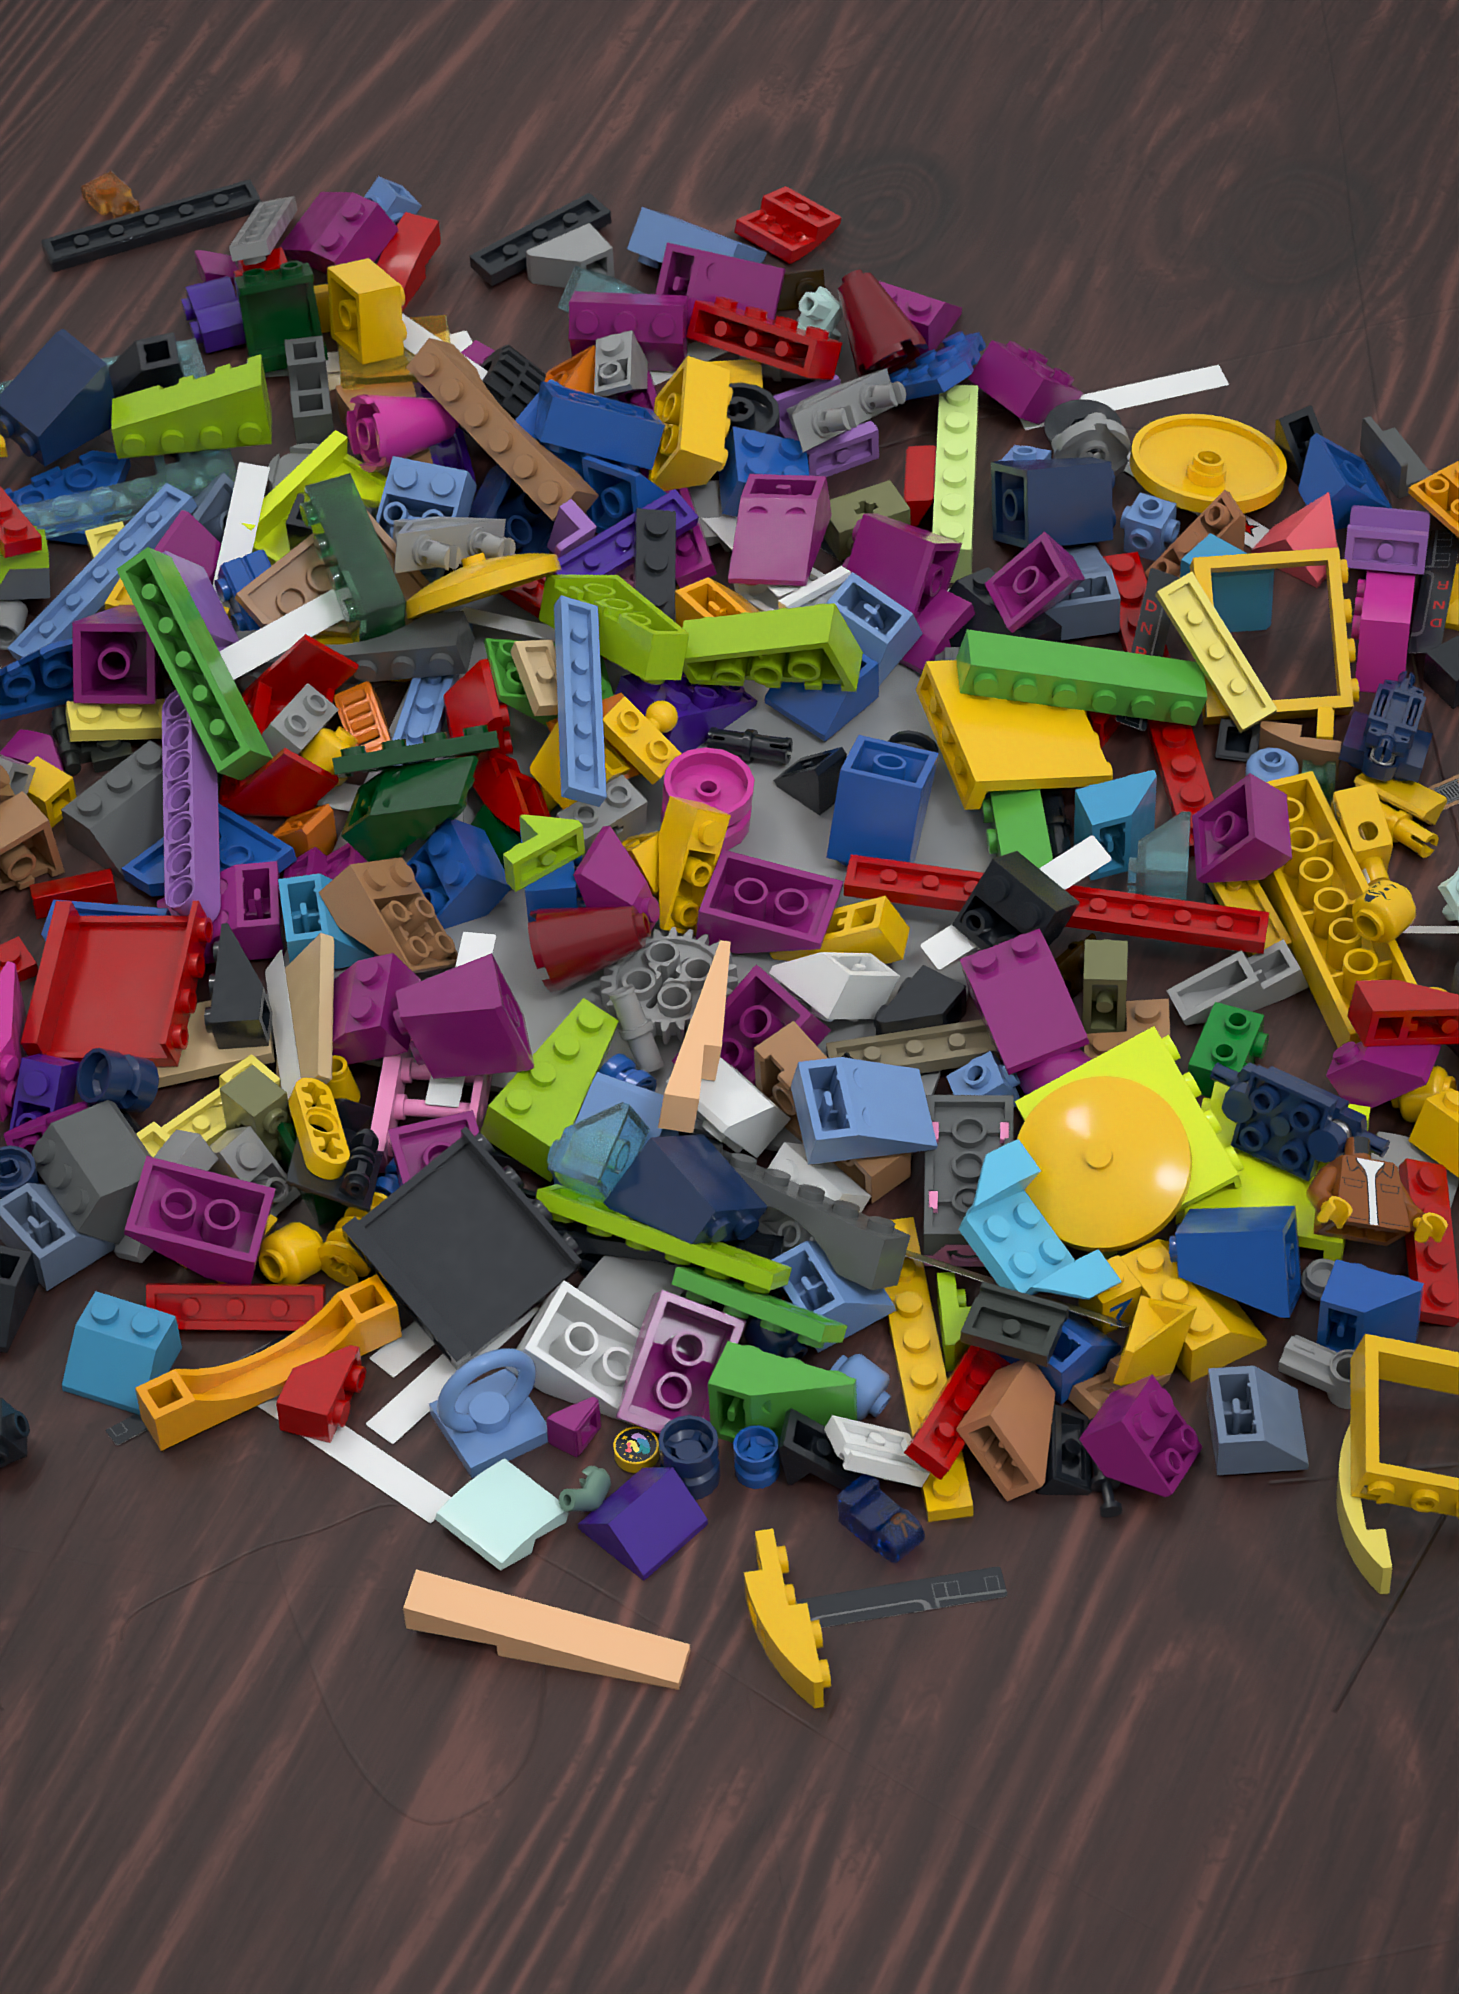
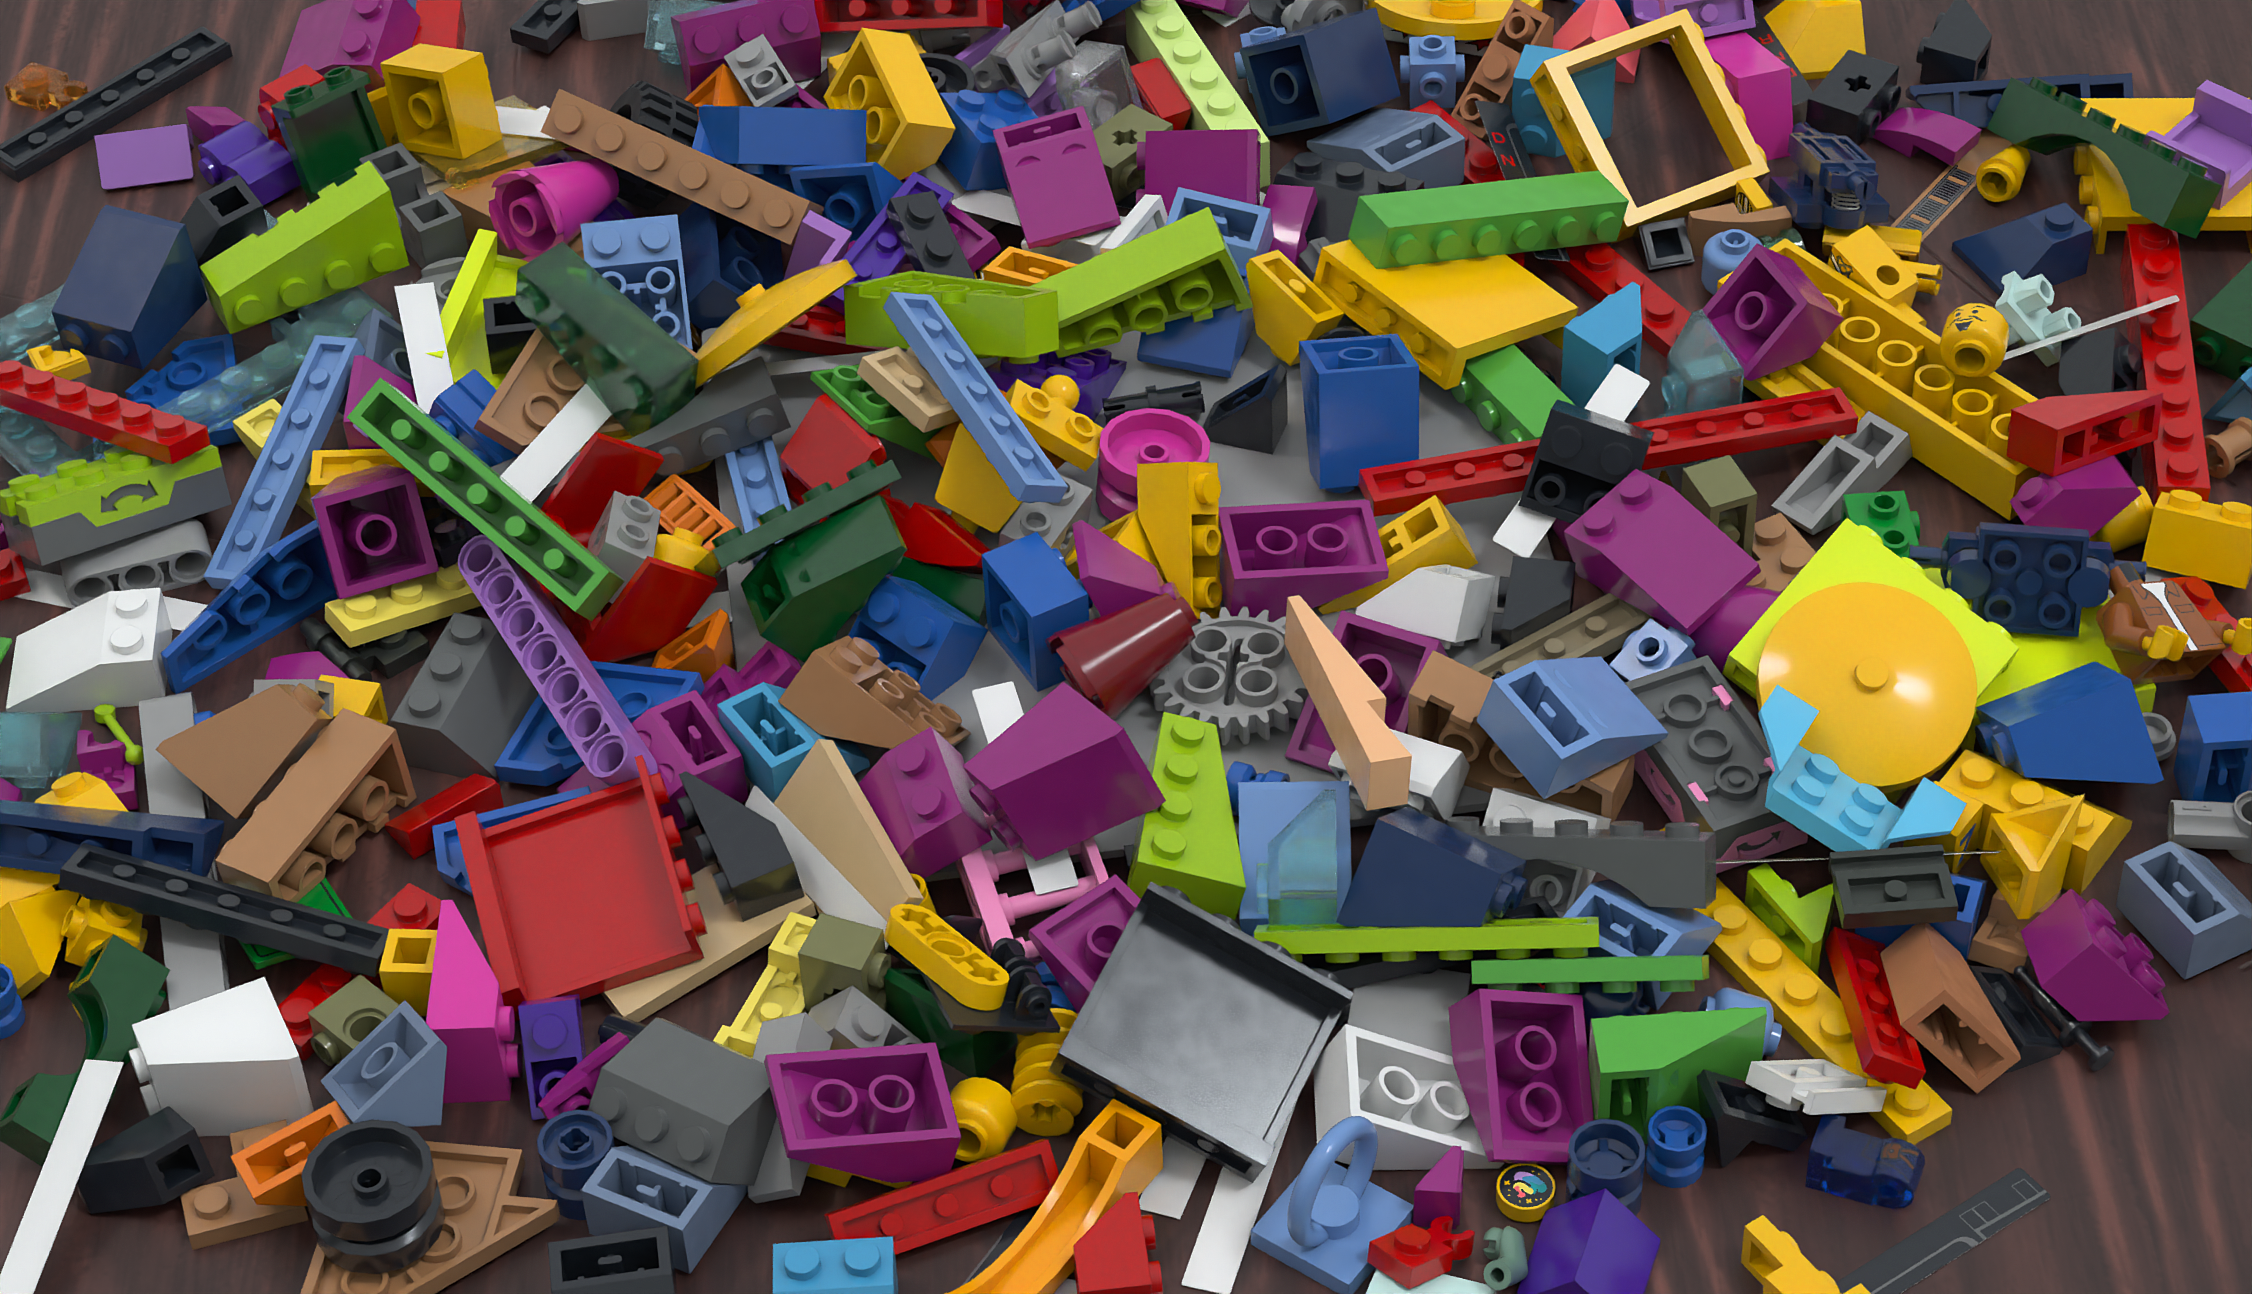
camera: 25 degrees left, 5 degrees down
(117, 1078) = (646, 988): dark blue wheel -> none
(148, 282) = (145, 157): none -> medium lavender panel
(262, 230) = (271, 55): light grey plate -> none
(446, 541) = (697, 291): light grey connector -> none
(527, 1465) = (1419, 1255): none -> red plate
(544, 848) = (1030, 560): lime slope -> none
(636, 1028) = (1237, 726): light grey pin -> none
(864, 458) = (1098, 81): none -> clear slope
(888, 696) = (1287, 305): none -> yellow slope
(1033, 582) = (1377, 139): magenta slope -> none
(1216, 652) = (1614, 151): light yellow plate -> none

